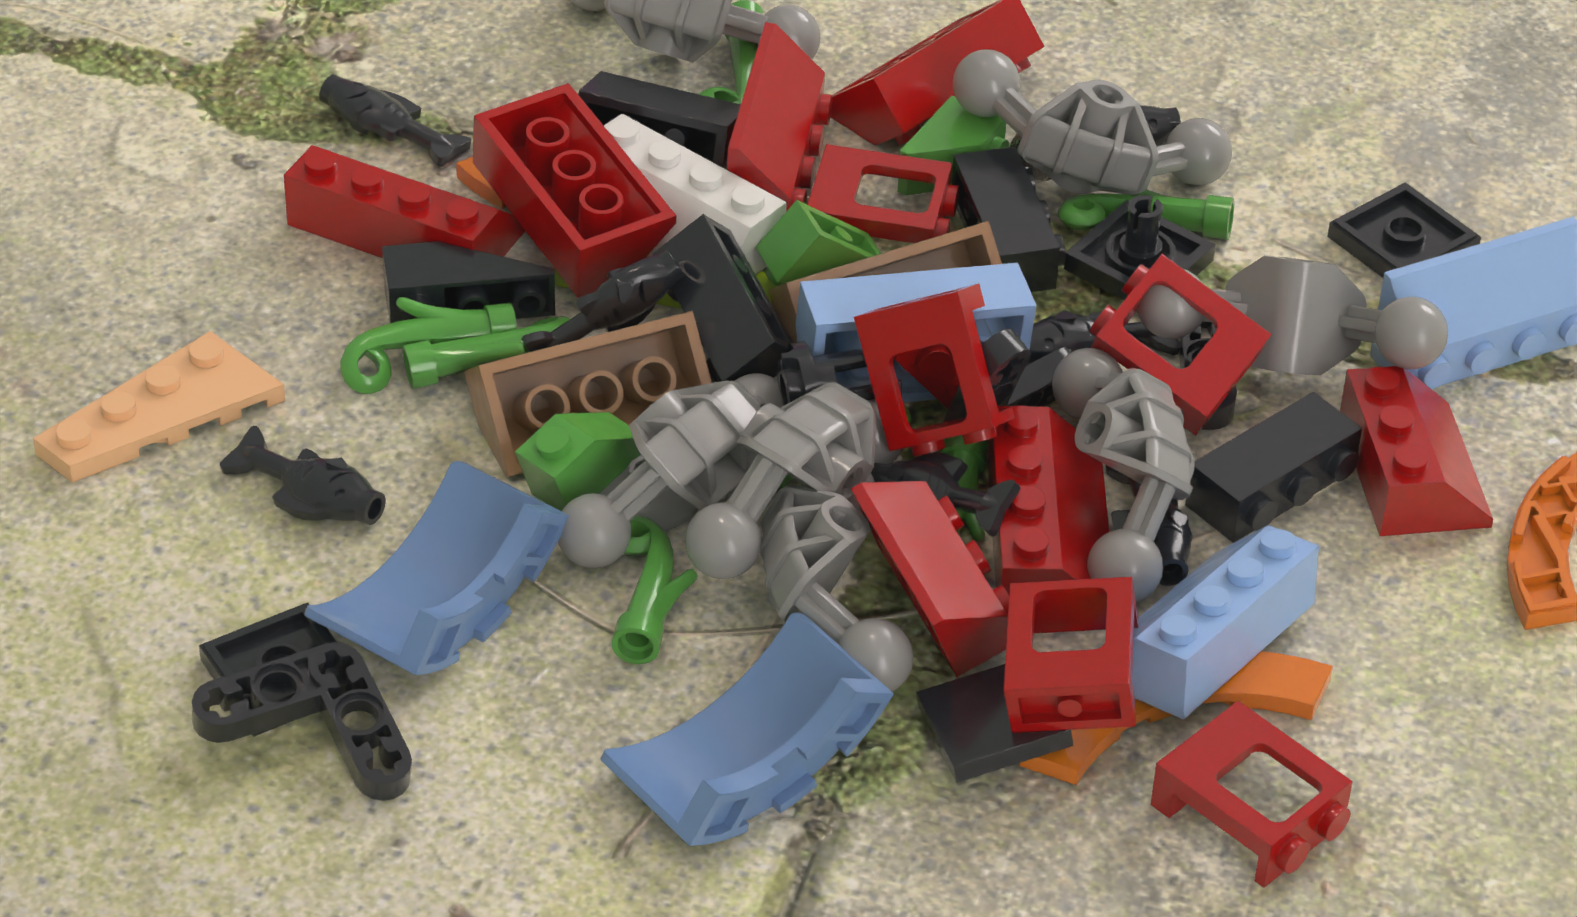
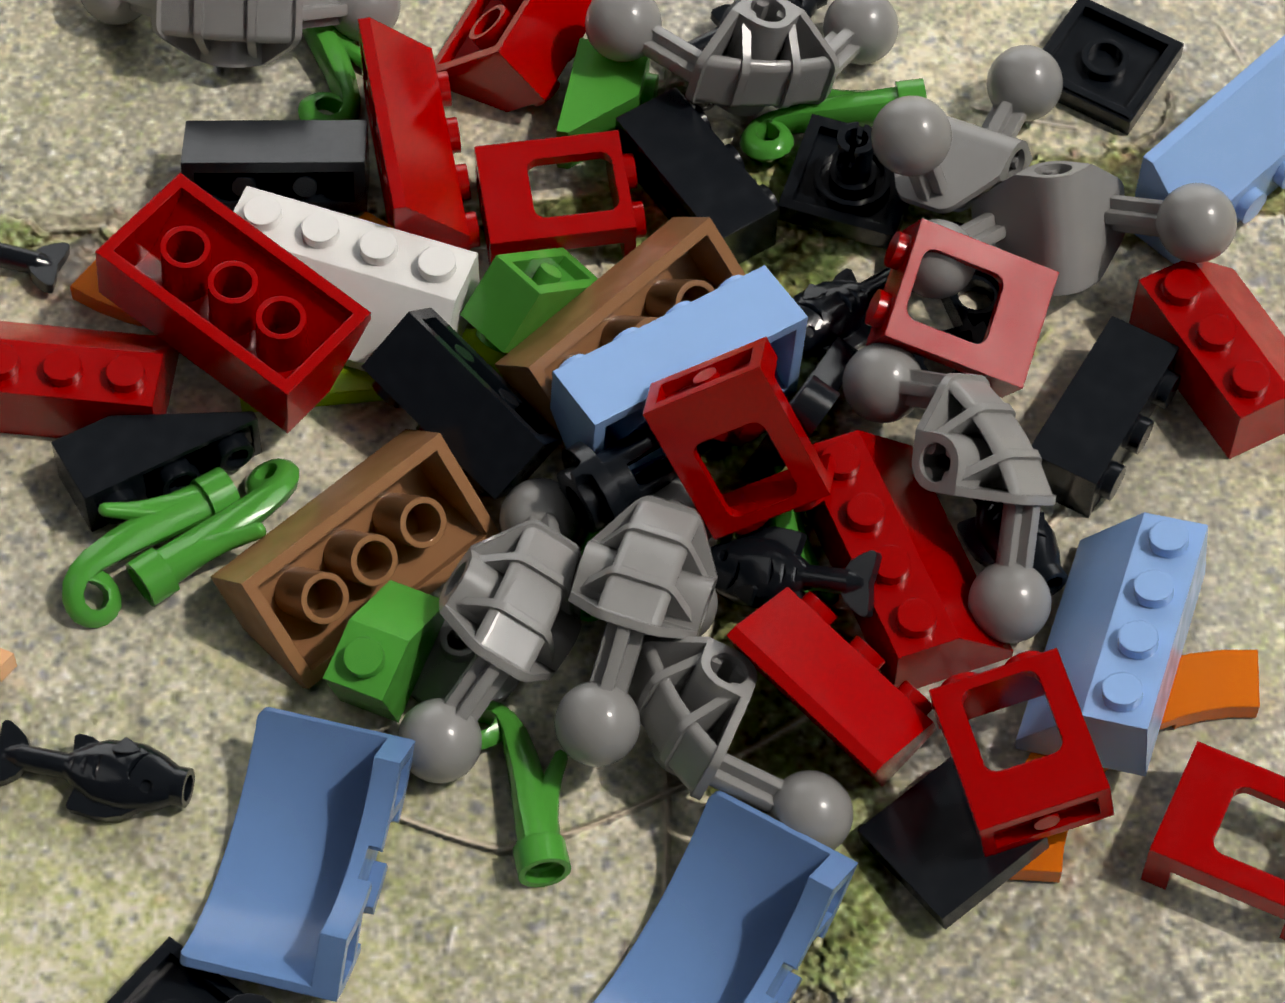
camera: 20 degrees left, 15 degrees up
(617, 303) = (343, 443): black animal -> none
(1220, 243) = (951, 162): none -> light grey piece

